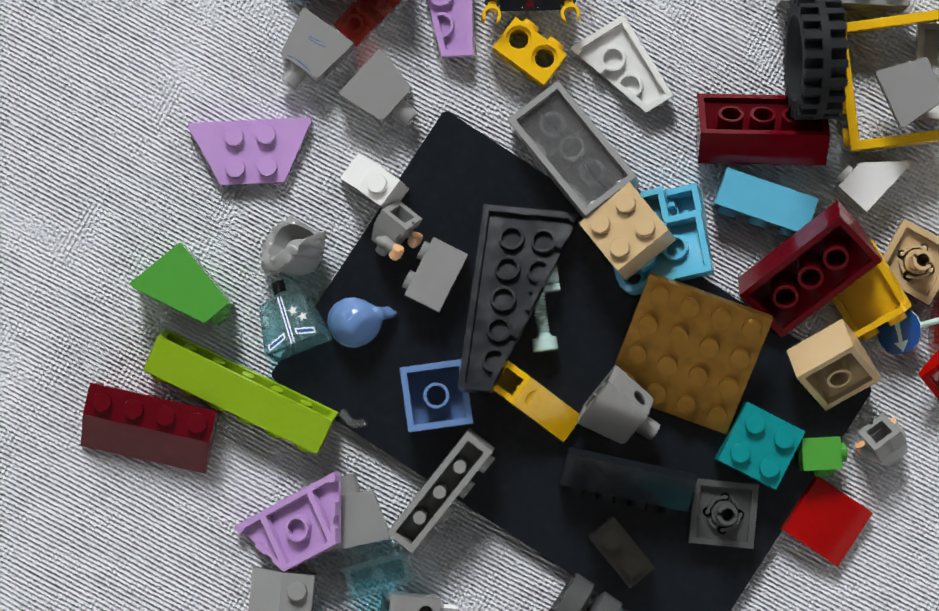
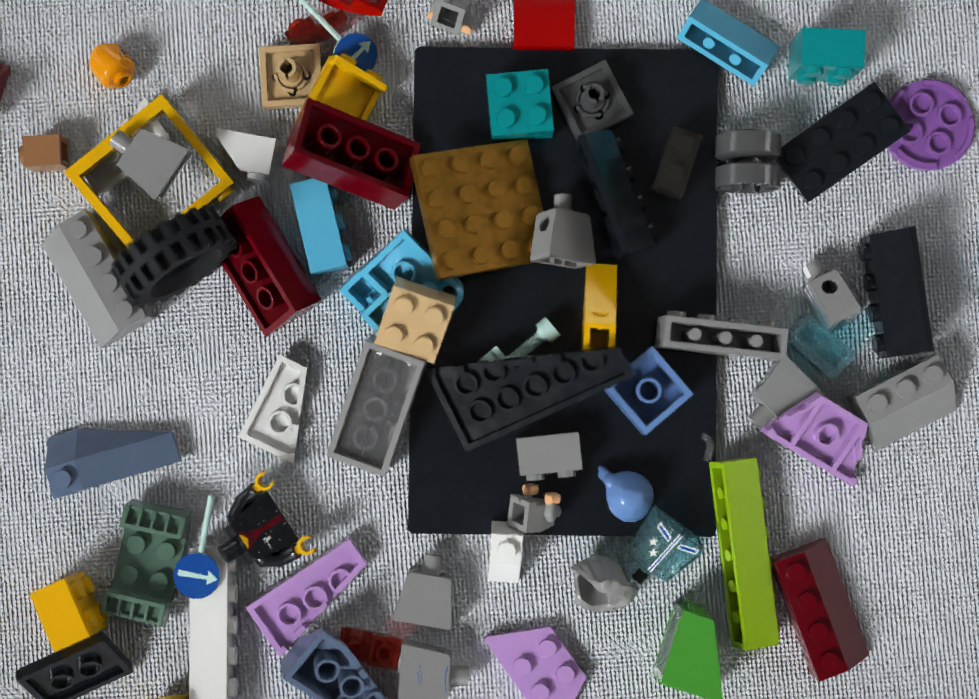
camera: 115 degrees left, 0 degrees up
(524, 58) = (325, 495): yellow brick -> none
(821, 455) = (495, 51): bright green brick -> none
(833, 365) = (417, 88): tan slope -> none

